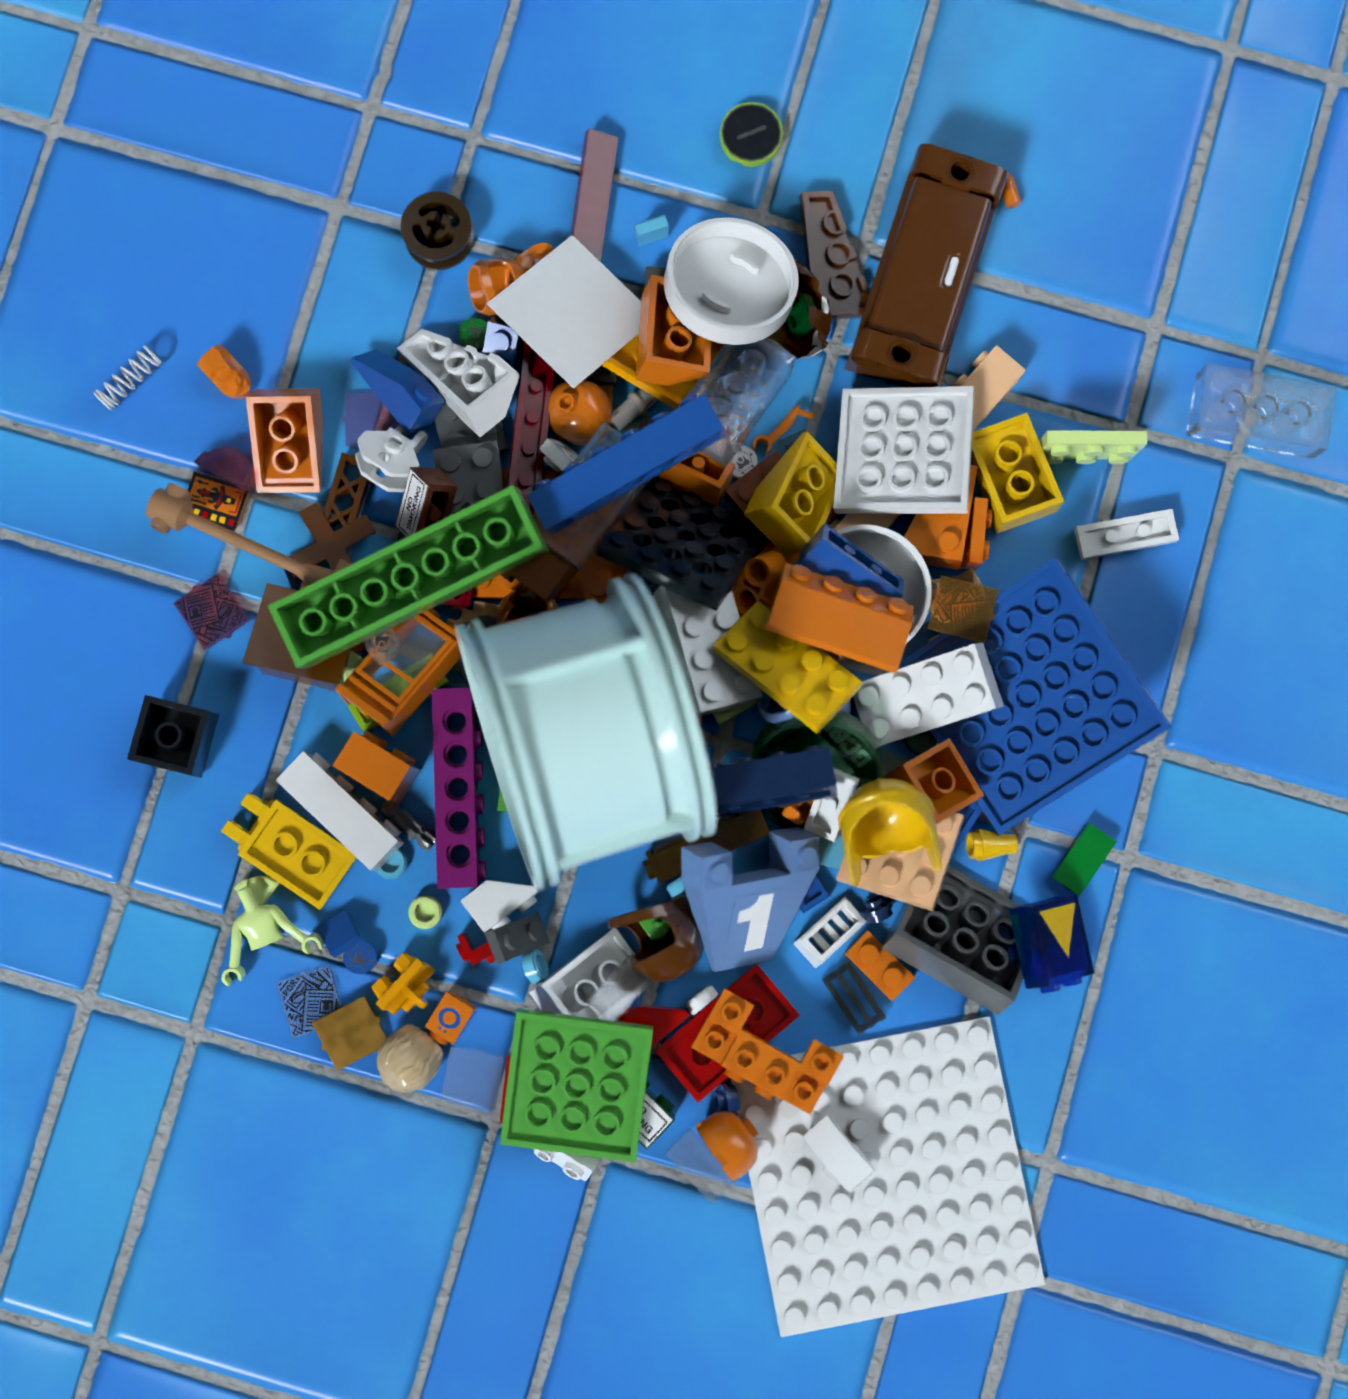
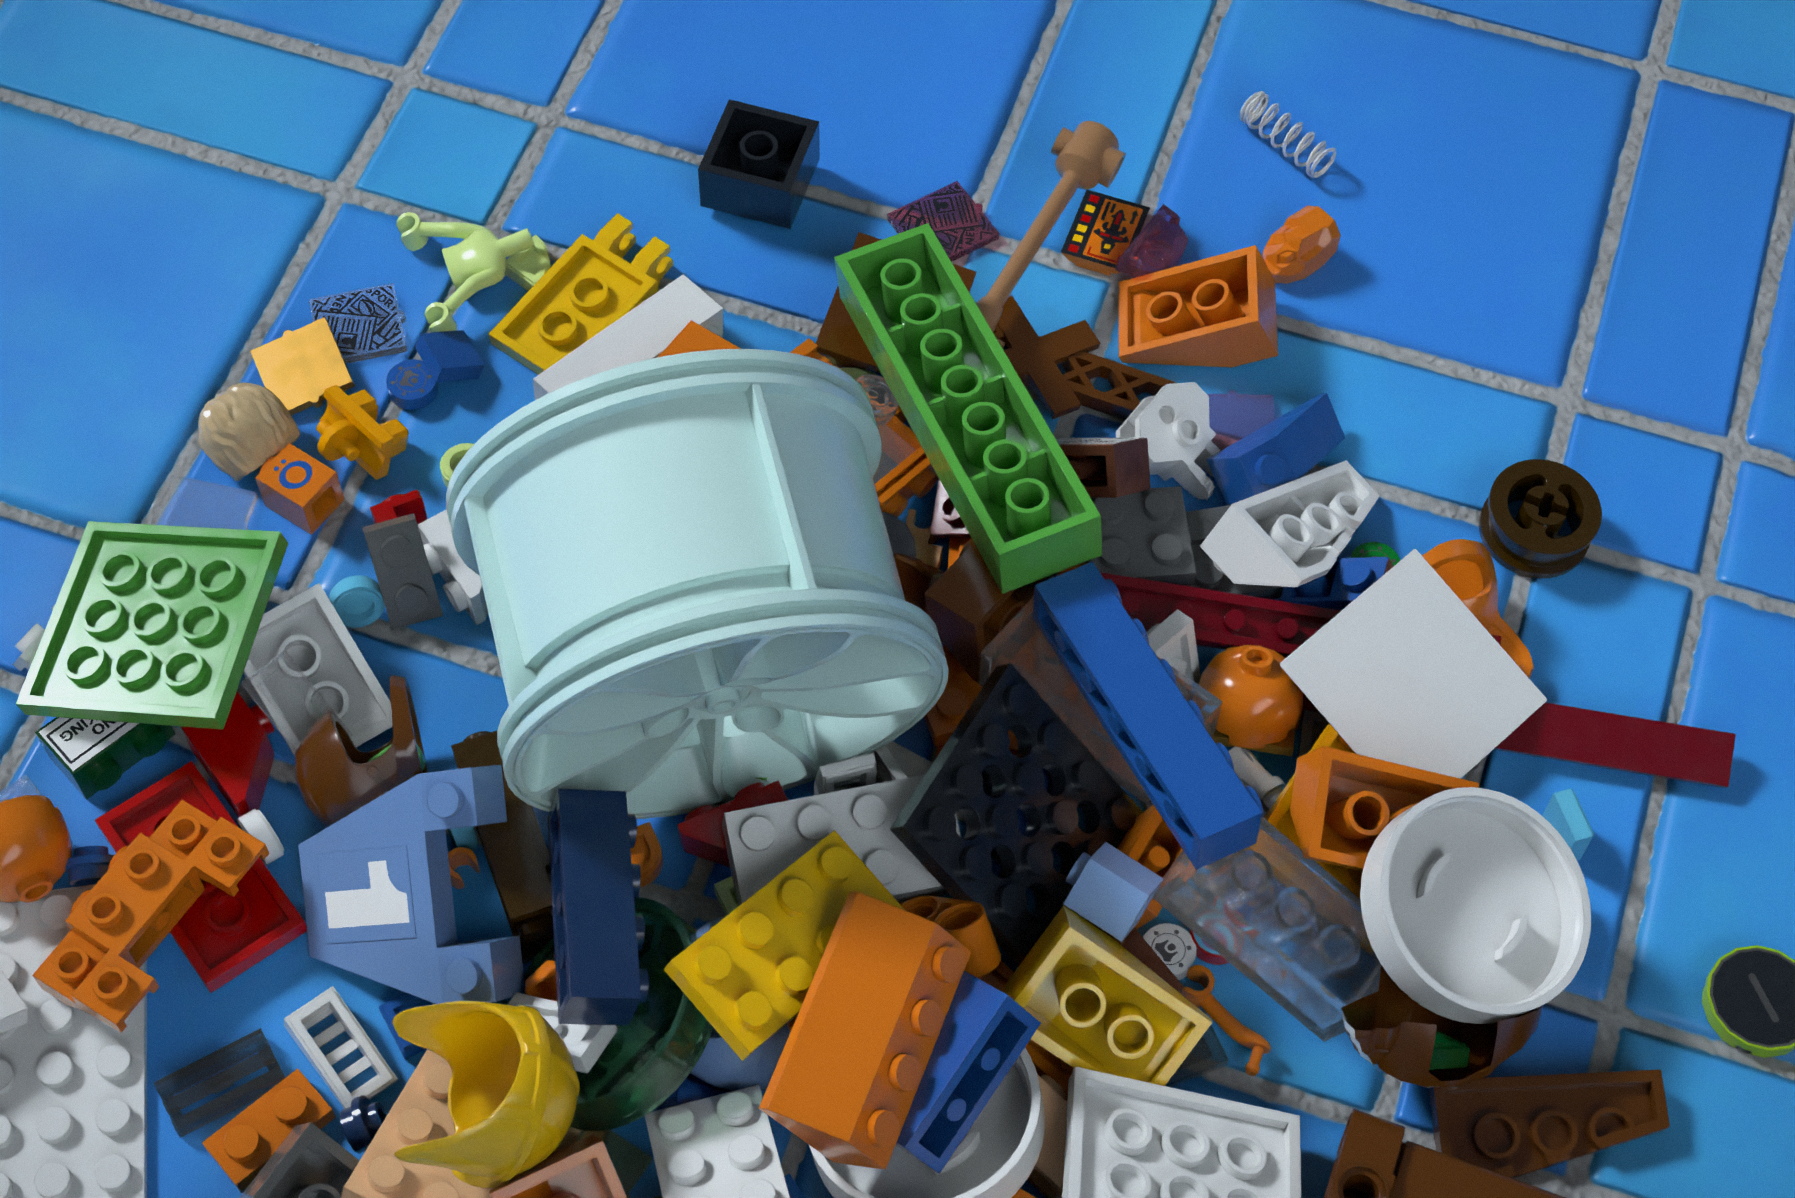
camera: 90 degrees right, 25 degrees down
(732, 486) = (1111, 890): none -> light blue brick

